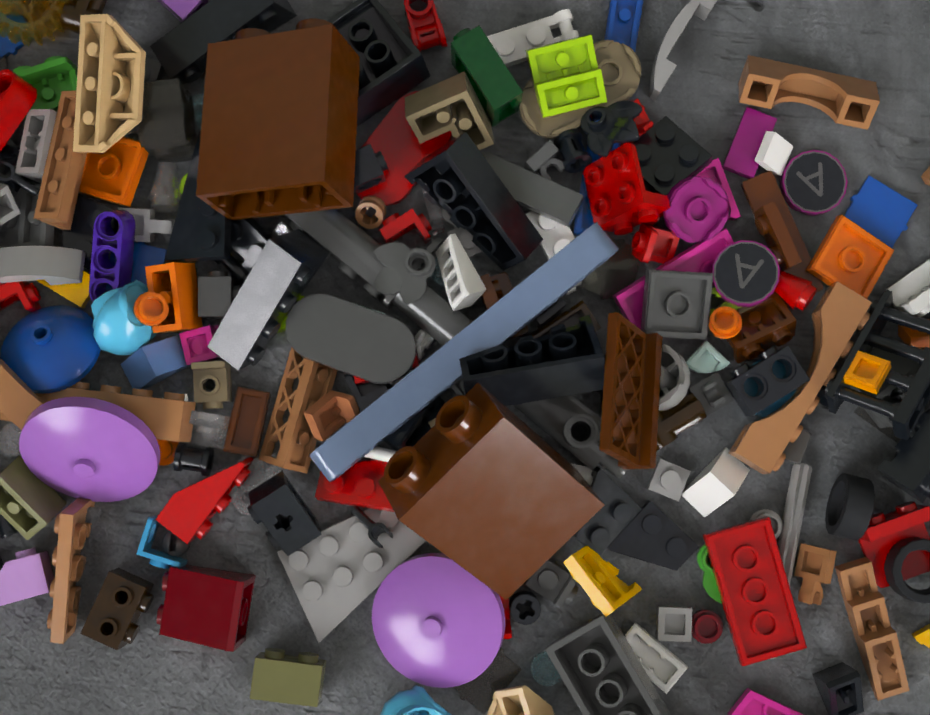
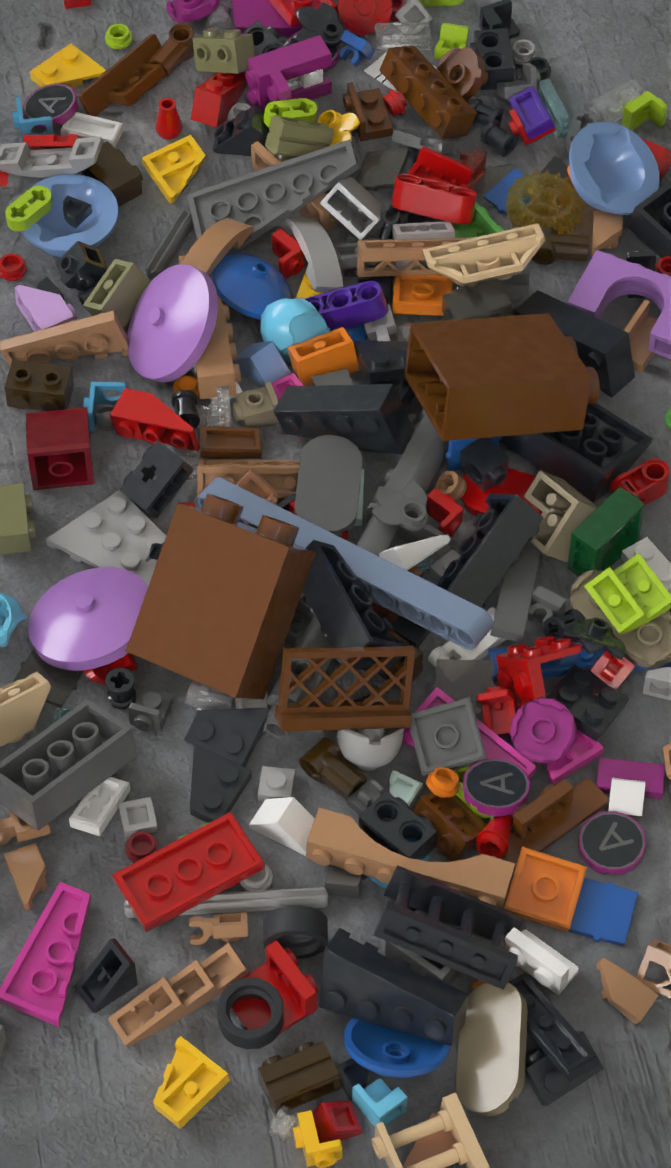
camera: 75 degrees right, 30 degrees down
(151, 308) = (307, 334): orange plate -> none
(600, 580) = (162, 737): yellow wing -> none
(867, 372) = (431, 896): light orange tile -> none

